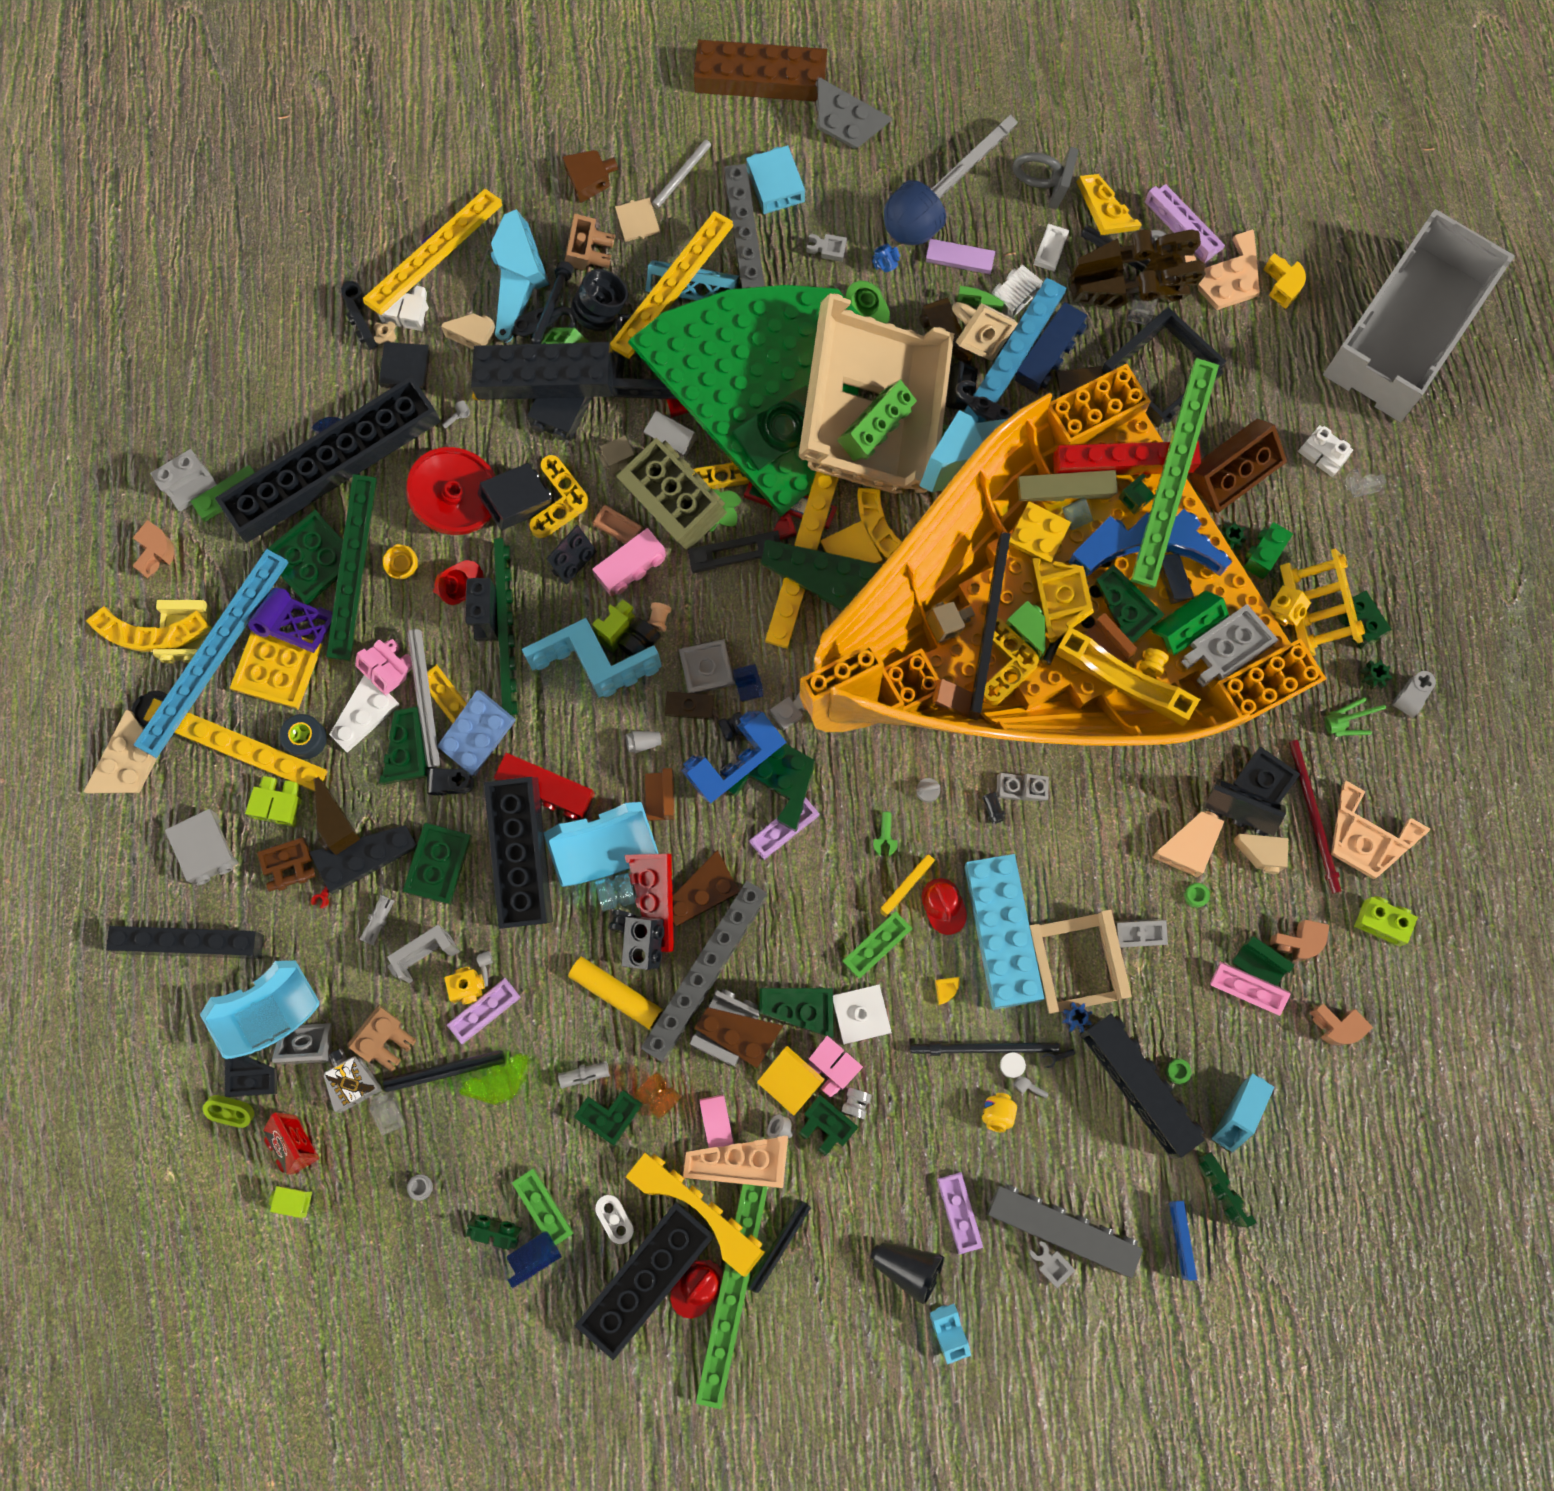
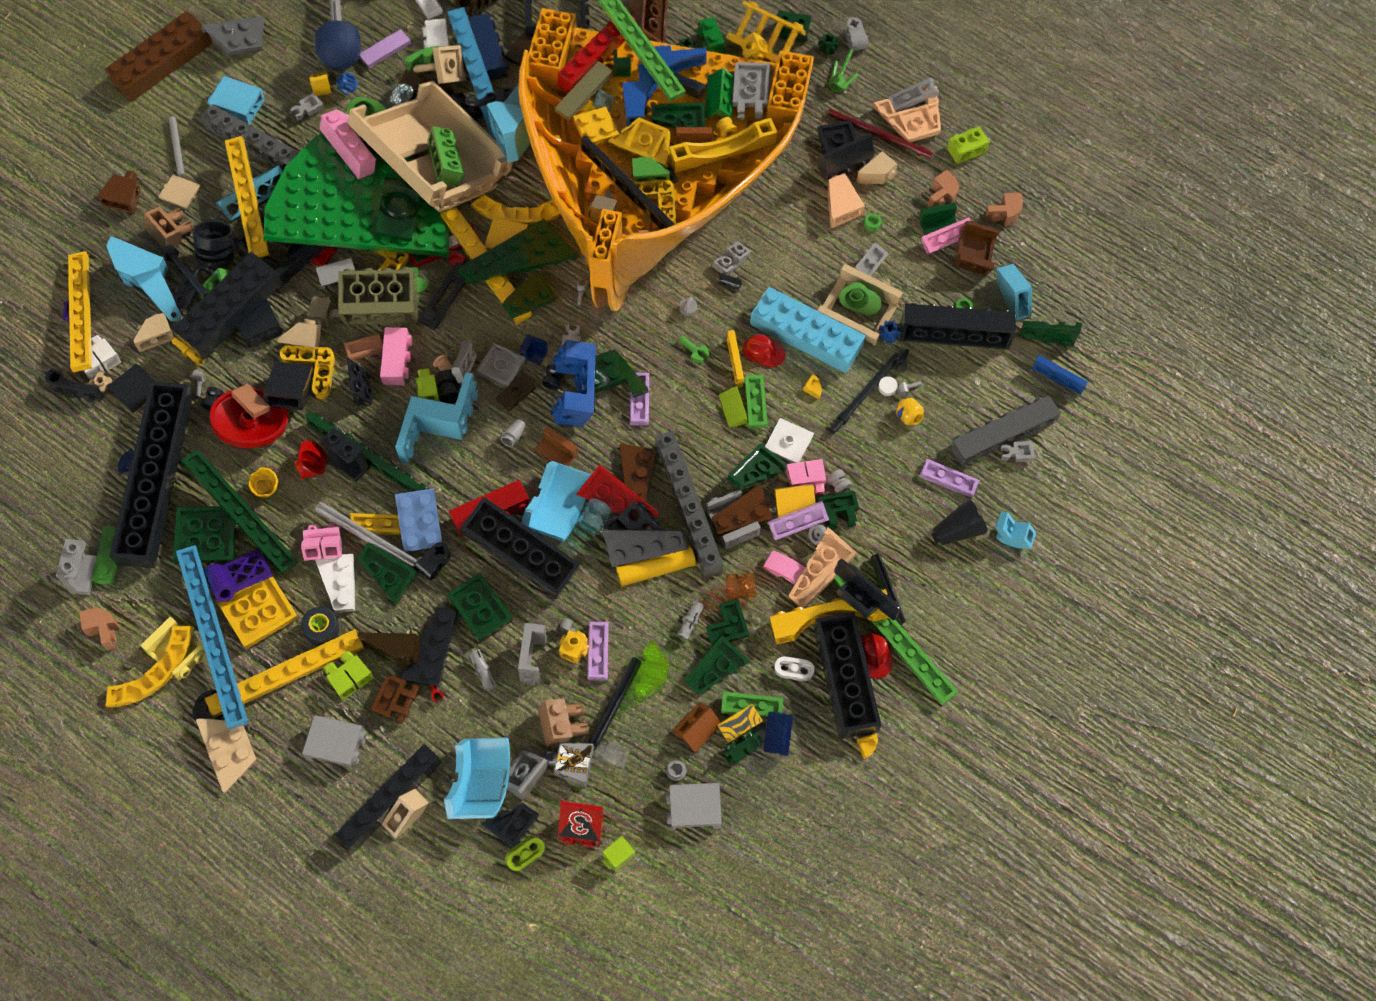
camera: 55 degrees left, 10 degrees down
(185, 968) = (405, 812): none -> tan slope
(393, 1236) = (694, 806): none -> light grey panel
(447, 440) = (212, 394): none -> black wheel
(468, 478) = (250, 401): none -> nougat tile
(479, 1171) = (697, 726): none -> dark orange panel
(513, 1211) = (740, 722): none -> tile
(554, 1136) = (714, 665): none -> dark green wing
(579, 463) = (303, 334): none -> tan slope
(593, 1358) = (867, 745): none -> yellow tile
(618, 964) = (636, 545): none -> black wing
(673, 631) = (464, 361): none -> light grey plate
(731, 1233) = (863, 594): none -> black bracket
(776, 1096) = (798, 520): none -> lavender tile
(797, 628) = (529, 296): none -> dark green wing
(804, 323) = (347, 143): none -> bright pink wedge
(851, 927) = (733, 407): none -> lime slope
(865, 233) = (320, 83): none -> yellow slope
(913, 318) = (398, 97): none -> clear light blue plate
(1088, 954) = (860, 299): none -> bright green piece
(1259, 1030) = (975, 247): none -> reddish brown panel
(1392, 814) = (913, 95): none -> light grey plate

